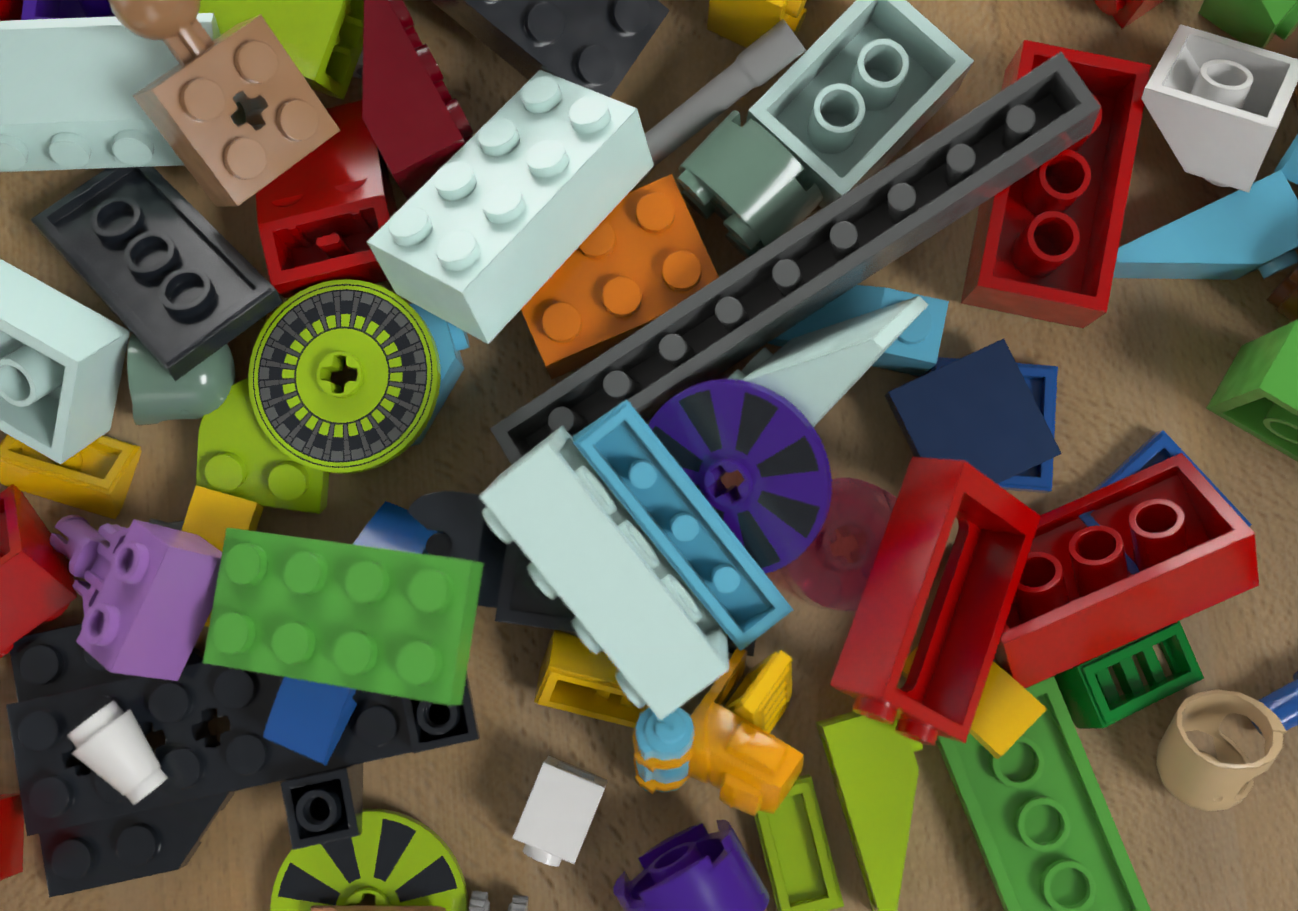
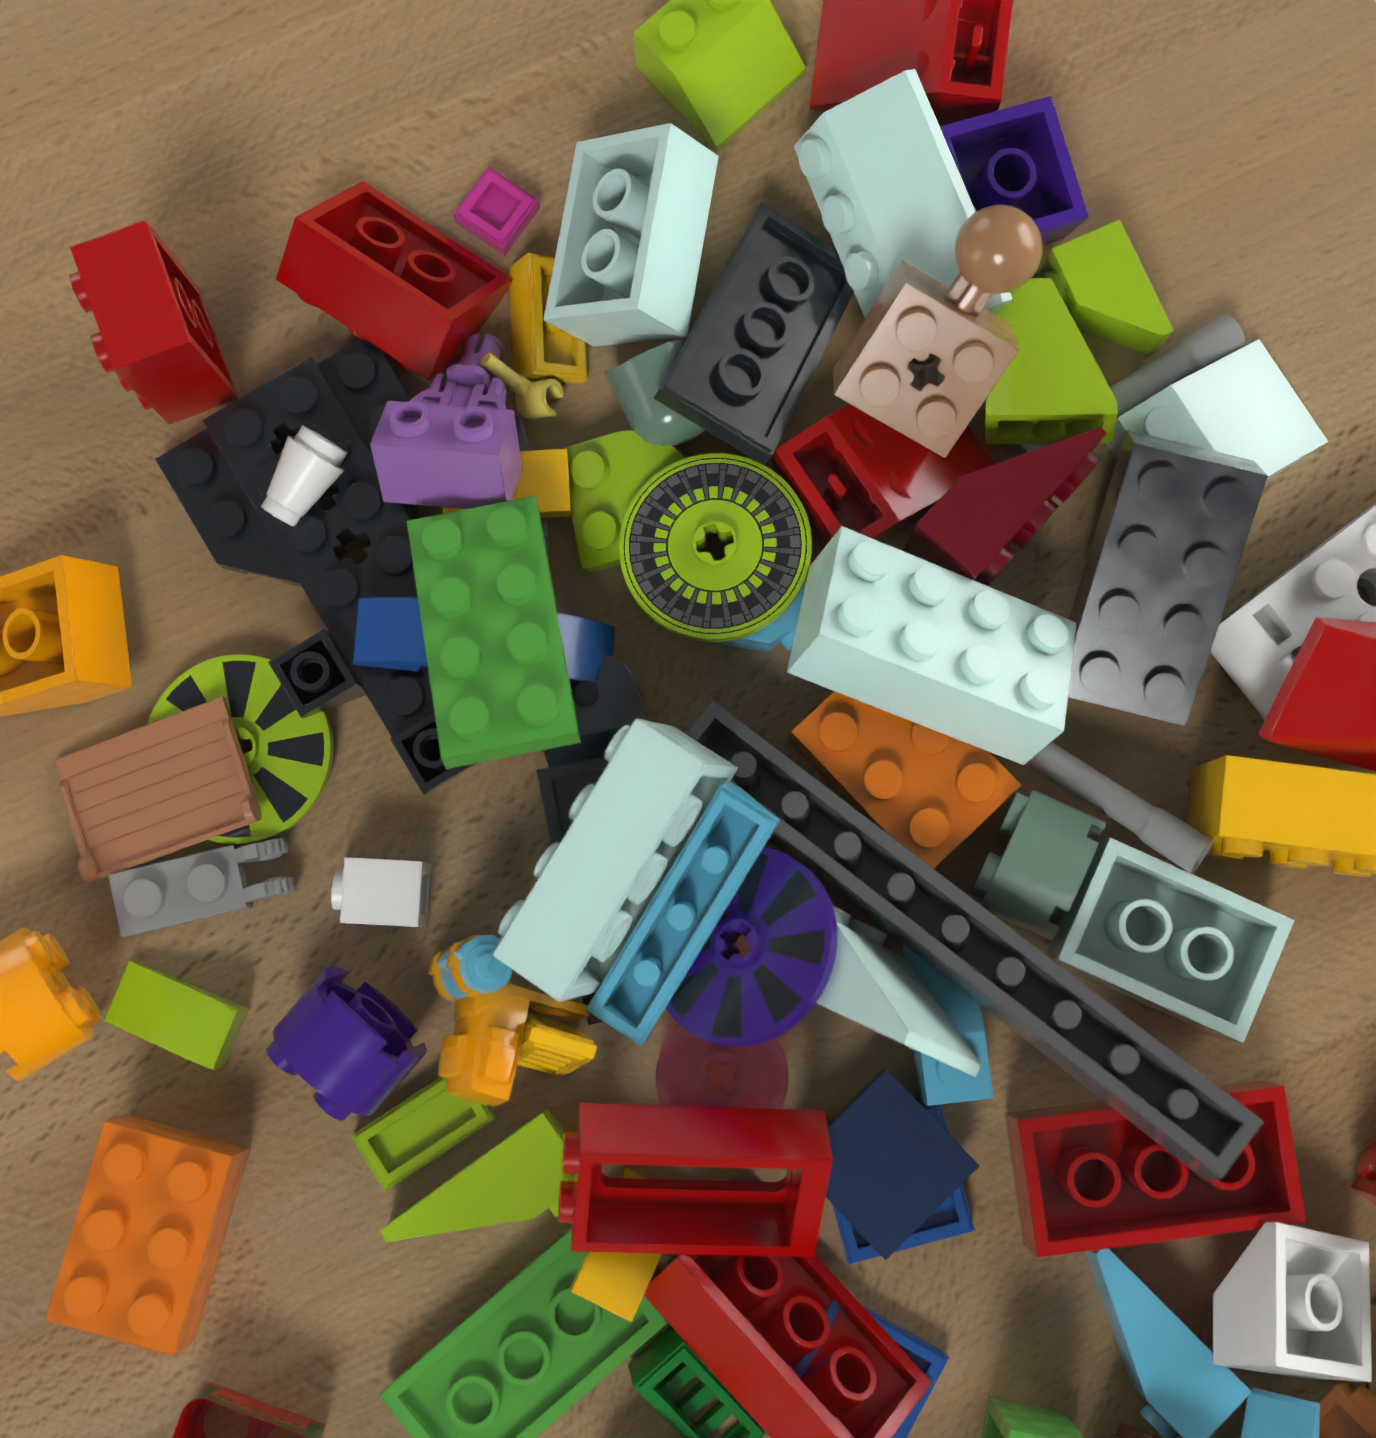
camera: 70 degrees right, 0 degrees up
(132, 504) = (529, 395): none -> light yellow hand
(583, 682) = (506, 869): yellow slope -> none

